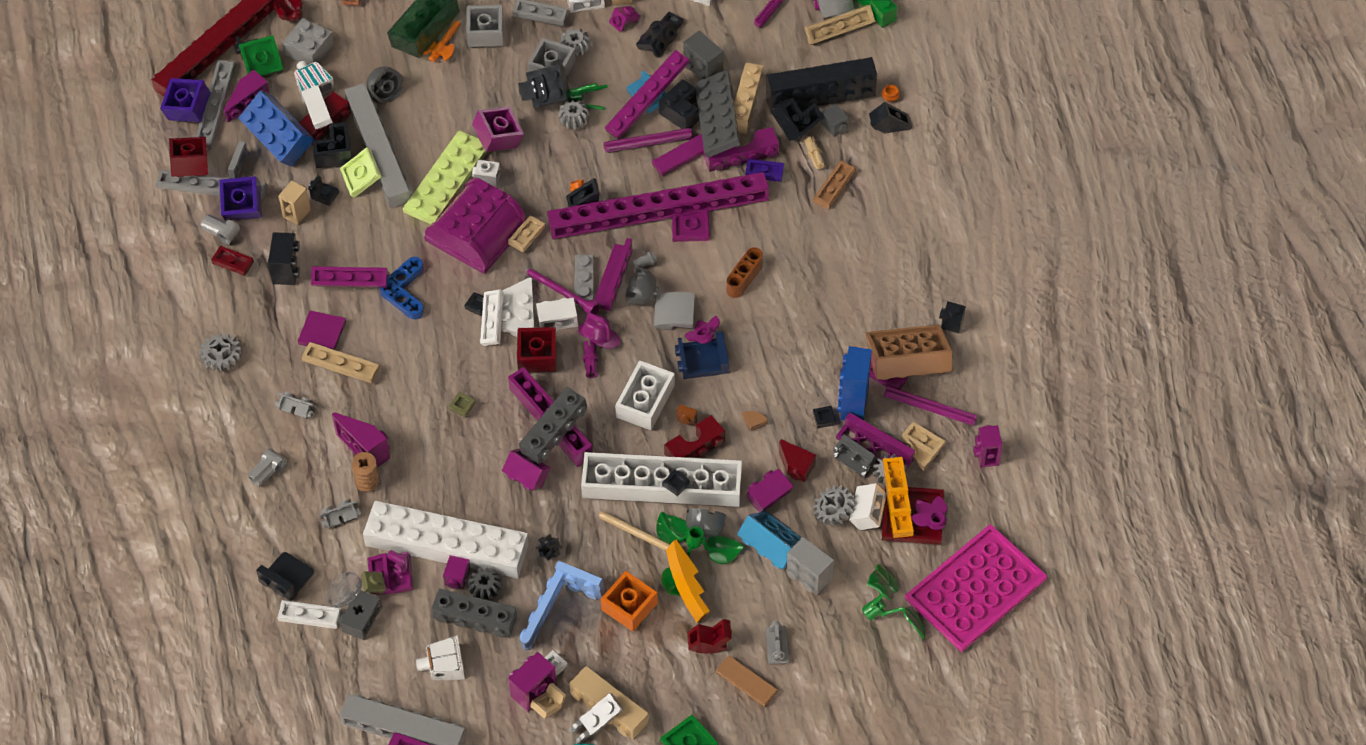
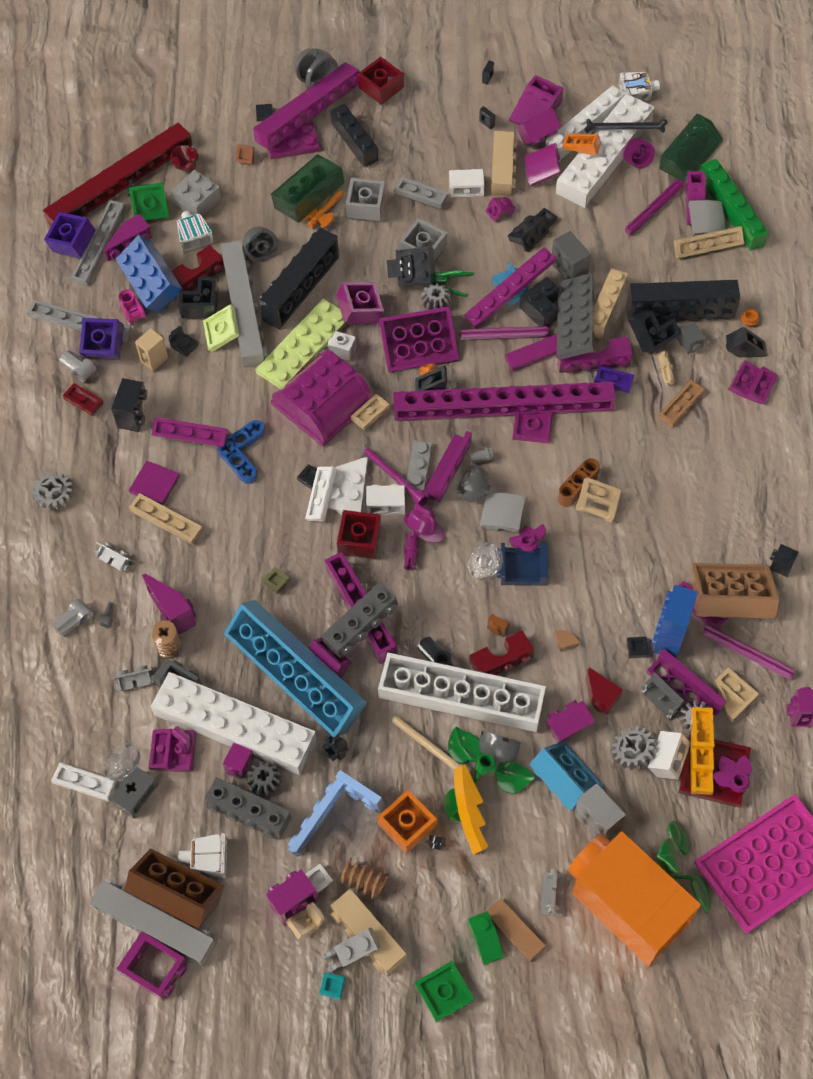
camera: 10 degrees right, 5 degrees up
(188, 156) = (60, 290): dark red brick -> none
(238, 160) = (107, 300): light grey tile -> none
(265, 165) = (131, 308): none -> dark pink piece
(285, 575) = (68, 737): black bracket -> none
(300, 466) = (105, 620): none -> dark grey hand
(316, 107) = (190, 258): white tile -> none
(371, 496) = (174, 667): none -> dark grey bracket
(373, 582) = (151, 759): olive plate -> none
(418, 690) = (174, 888): none -> reddish brown brick
(431, 112) = (299, 278): none -> black brick
(496, 479) = (295, 668): none -> dark azure brick
(562, 156) = (418, 339): none -> magenta slope
(577, 40) = (451, 224): light grey gear -> none
(597, 658) = (363, 880): none -> medium nougat piece
(626, 446) = (433, 651): none -> black piece
(645, 395) = (459, 598): white brick -> none
(660, 616) = (436, 842): none -> black plate
(666, 355) = (485, 561): none -> clear tile
(676, 482) = (474, 700): black tile -> none
(709, 639) = (483, 877): dark red brick -> none
(719, 690) = (485, 938): none -> green slope
(769, 280) = (601, 494): none -> tan plate
(850, 630) = (631, 895): none -> orange container
(902, 155) = (753, 382): none -> magenta slope

